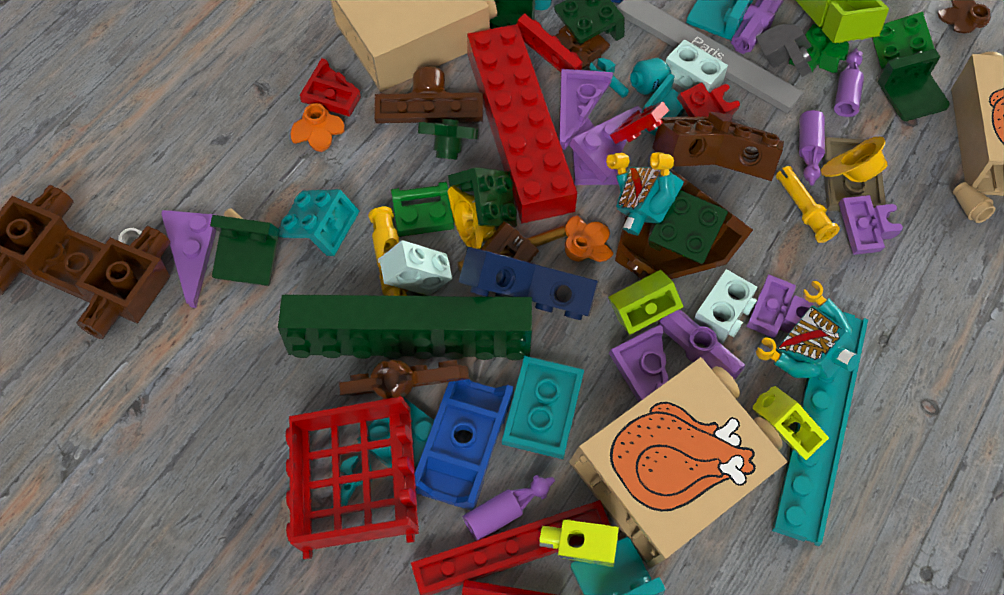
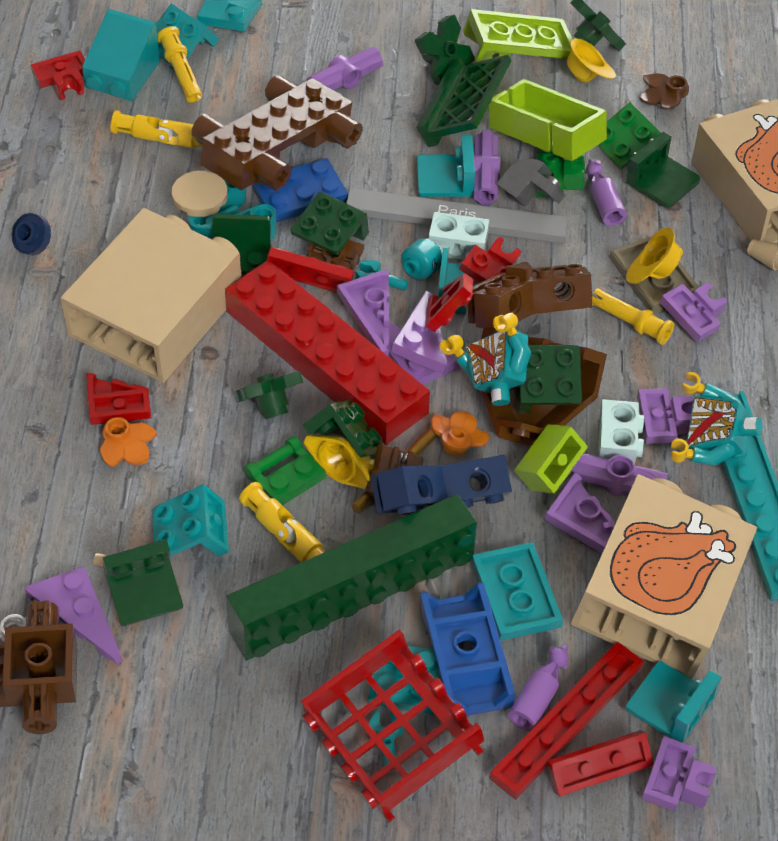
camera: 30 degrees left, 10 degrees down
(397, 378) = (381, 620): reddish brown plate -> none
(415, 268) = (325, 521): light aqua brick -> none
(428, 102) = (224, 370): reddish brown plate -> none
(598, 544) = (633, 673): neon yellow torso -> none
(783, 410) = (730, 490): neon yellow torso -> none
(812, 143) = (604, 260): medium lavender wheel -> none

